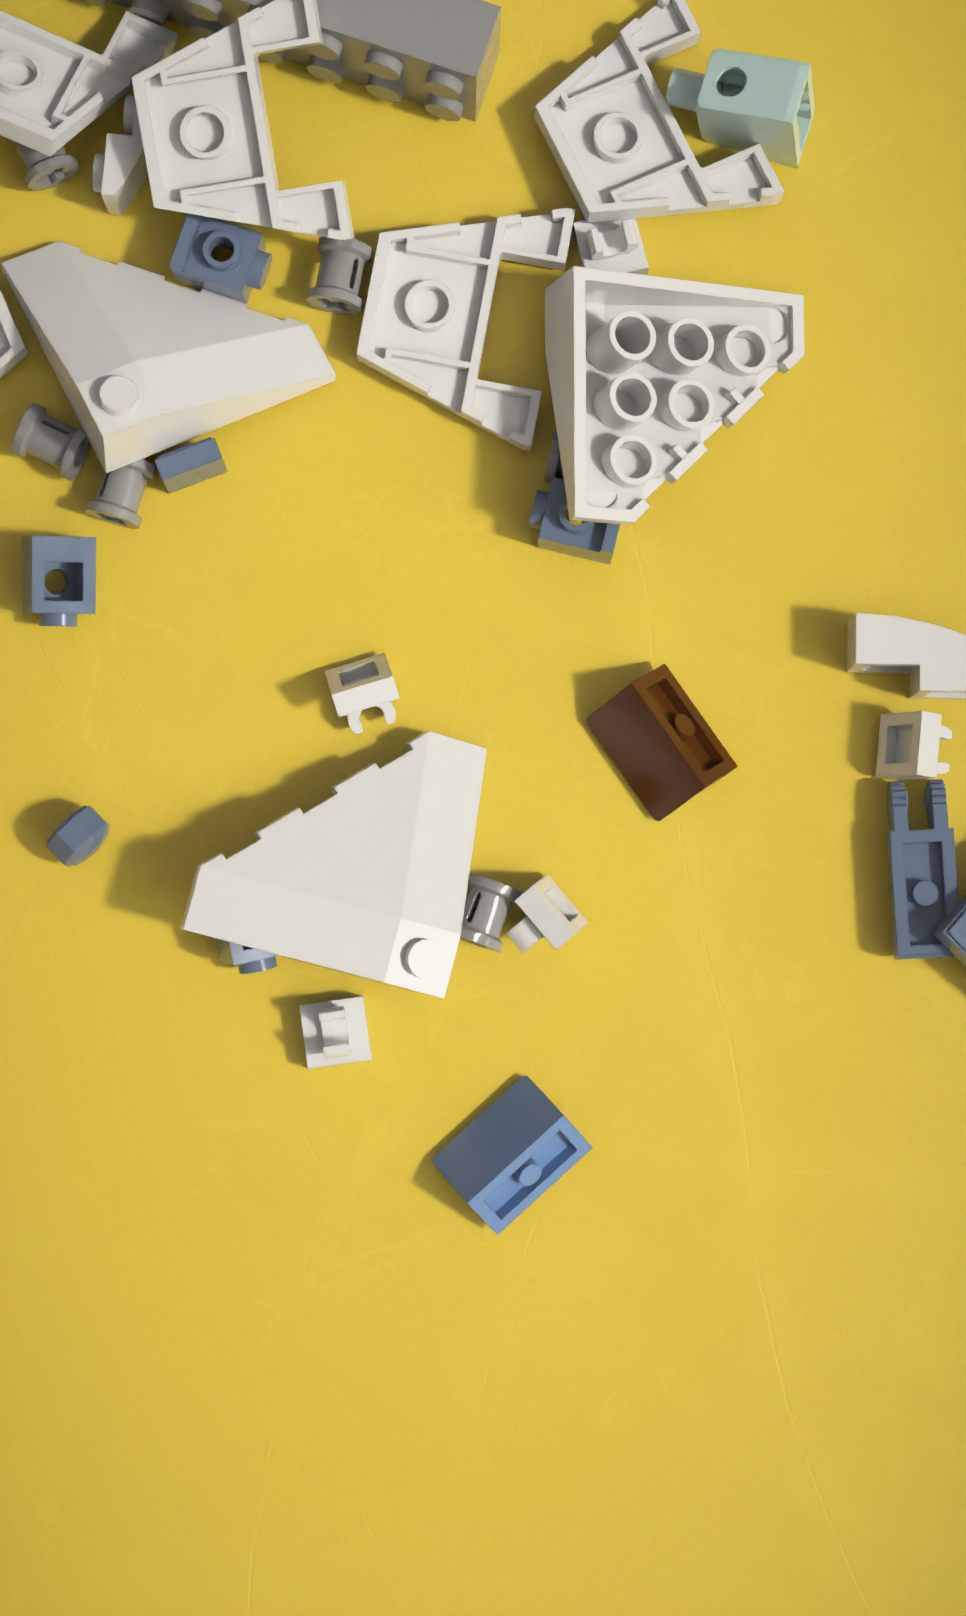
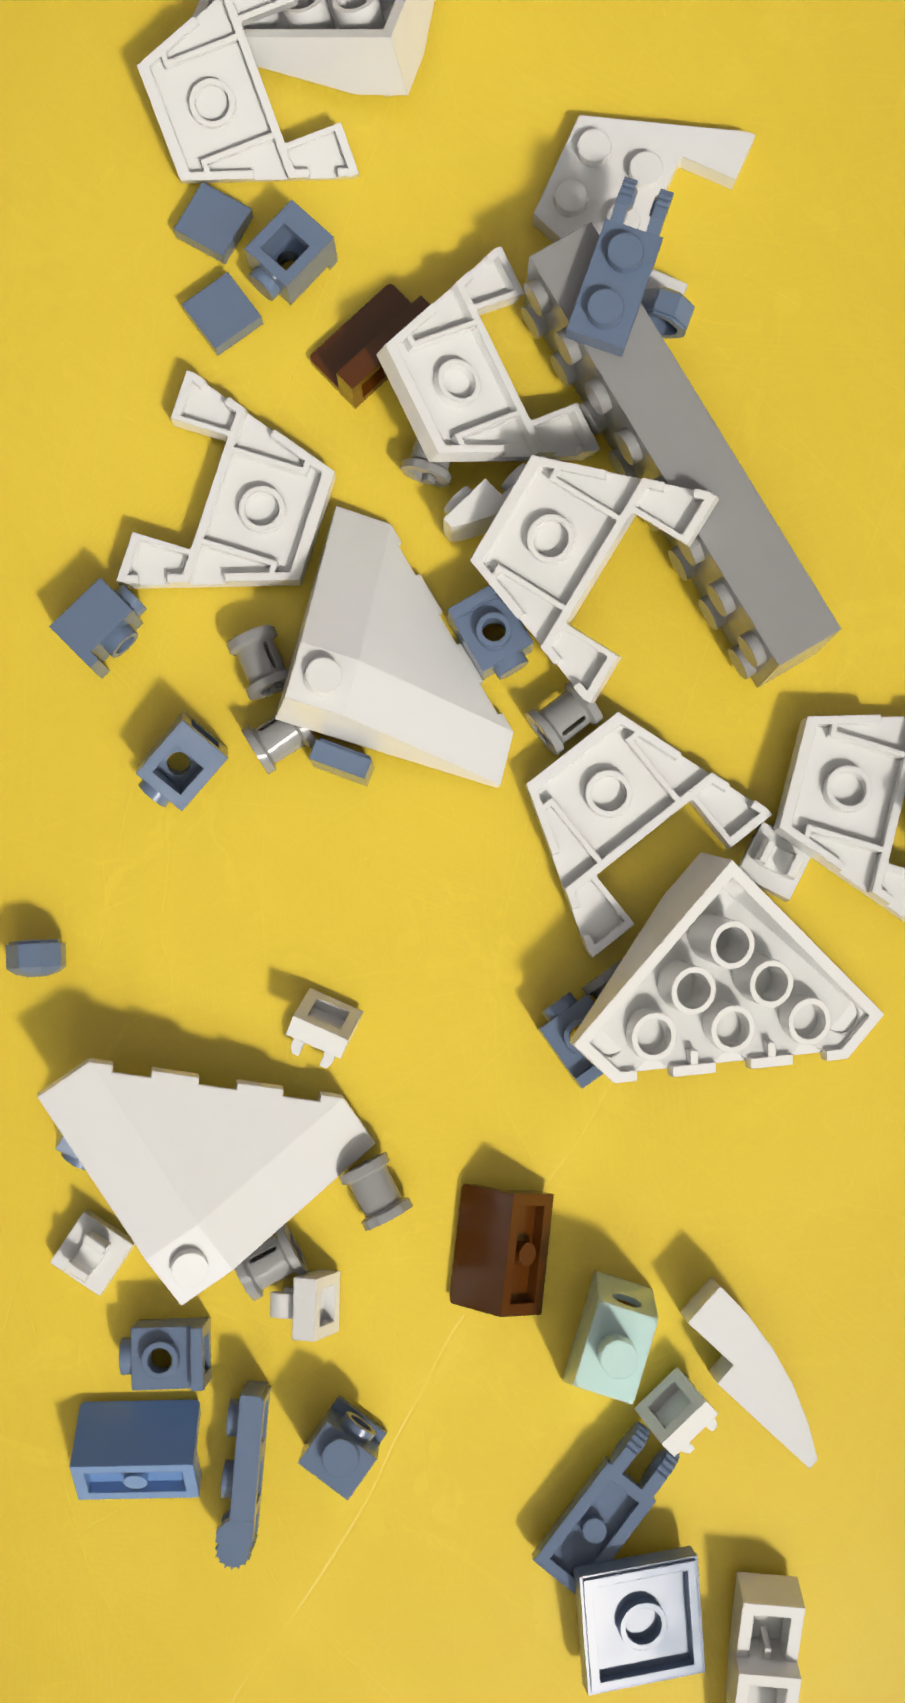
camera: 45 degrees right, 0 degrees up
(488, 1040) = (186, 1341): none -> sand blue brick
(520, 782) = (375, 1191): none -> light grey bush
(612, 1096) = (244, 1475): none -> sand blue hinge
(671, 1002) = (342, 1447): none -> sand blue brick
(811, 735) = (612, 1338): none -> light aqua torso

